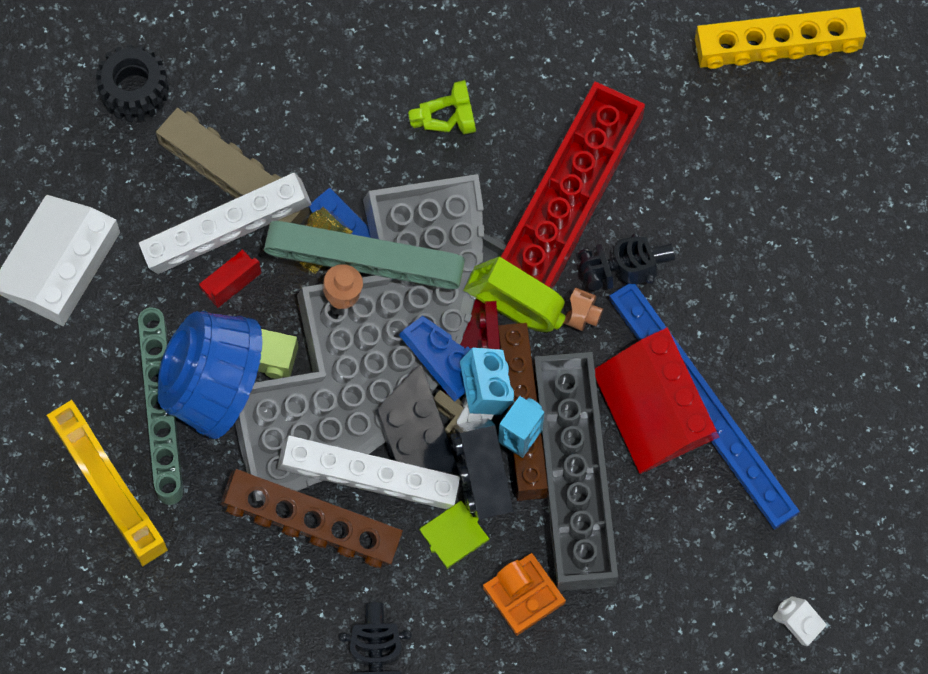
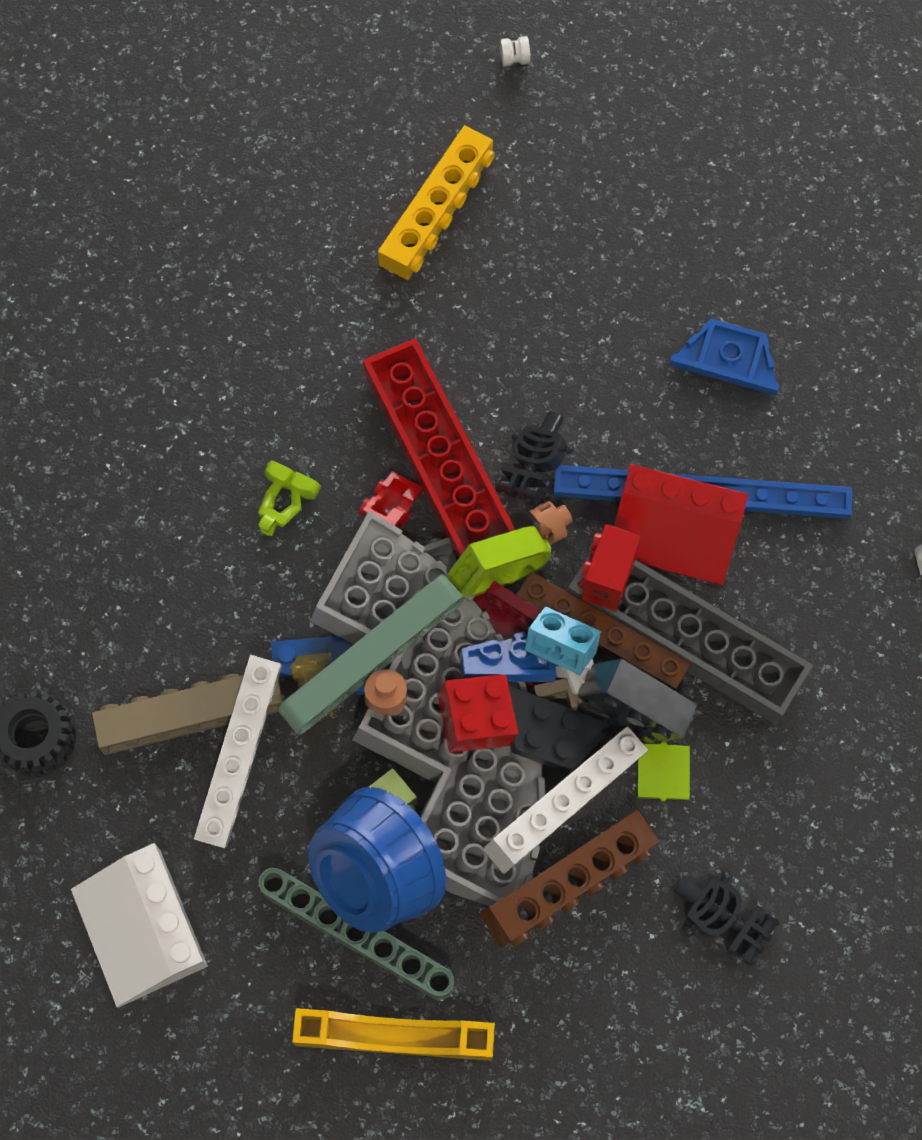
camera: 50 degrees left, 0 degrees up
(230, 278) = (284, 786): red panel -> none
(380, 361) = (477, 713): none -> red brick
(504, 189) = (392, 499): none -> red cylinder
(521, 426) = (633, 638): medium azure brick -> none
(523, 593) = (761, 753): orange plate -> none
(566, 369) = (609, 567): none -> red brick
(837, 343) = (729, 355): none -> blue wing

